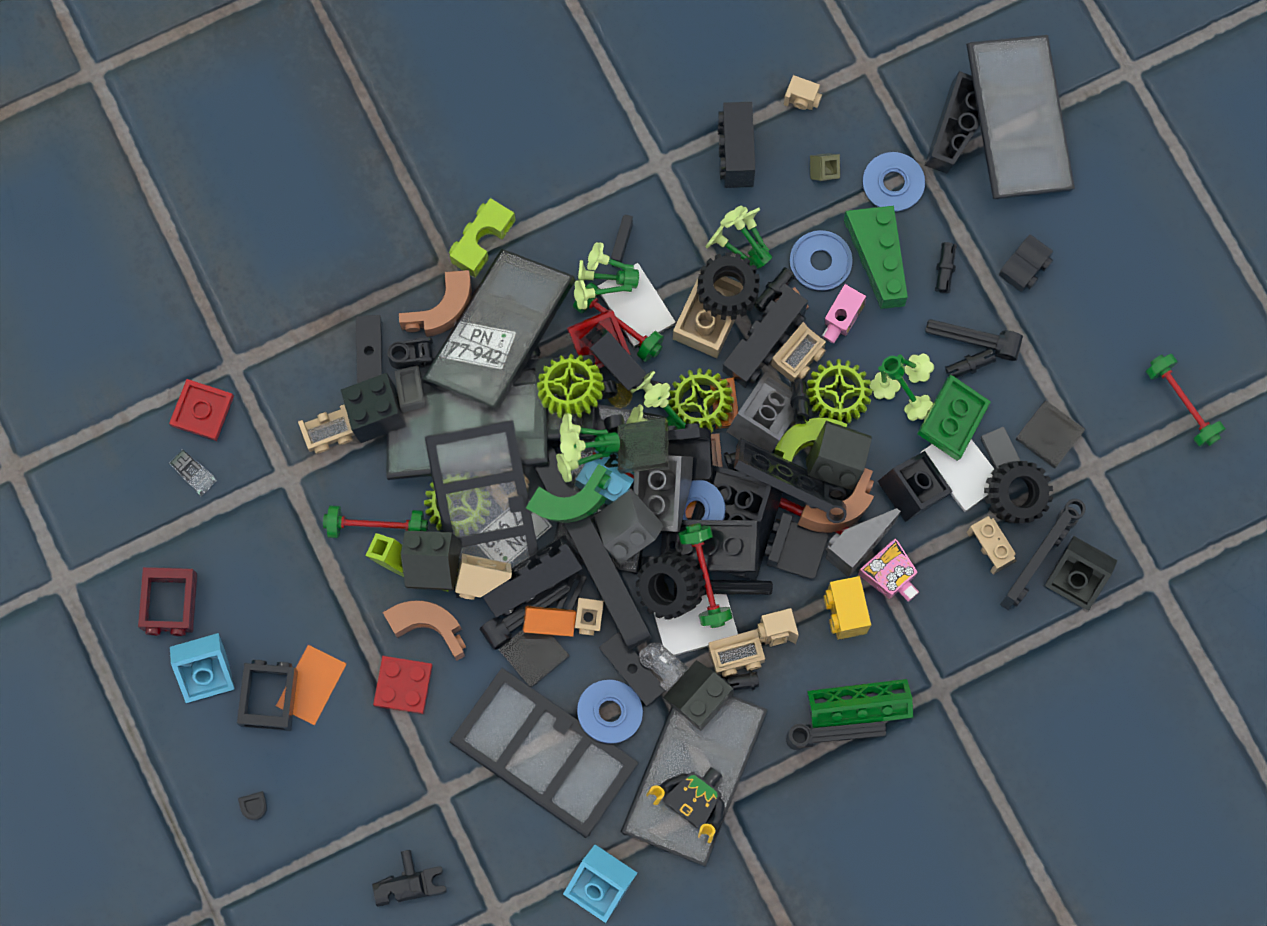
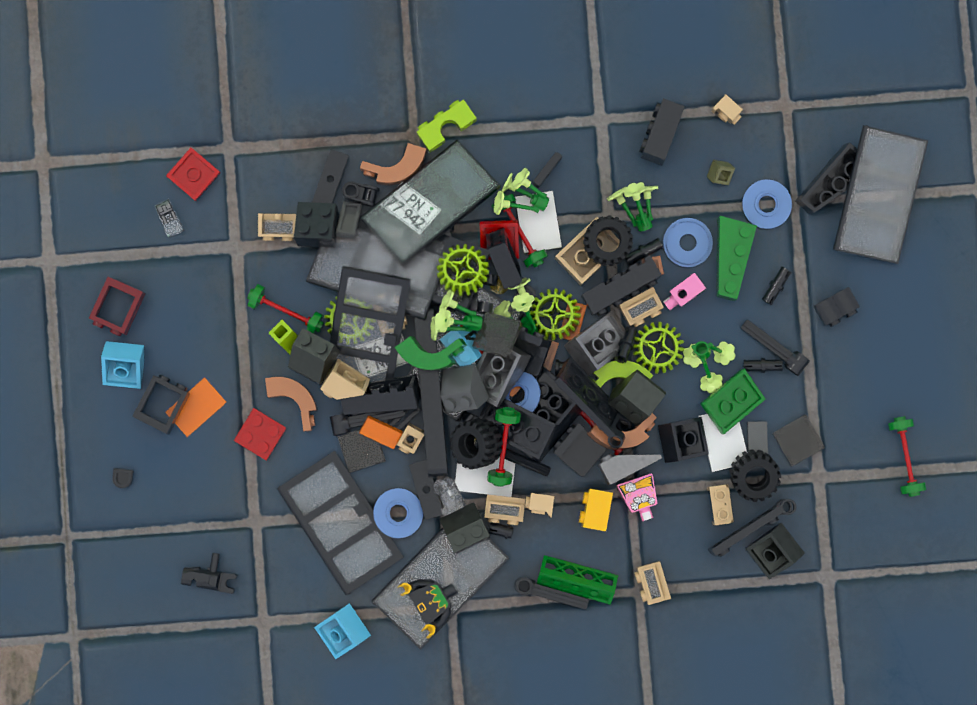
camera: 20 degrees right, 10 degrees up
(952, 670) = (652, 582): none -> tan window

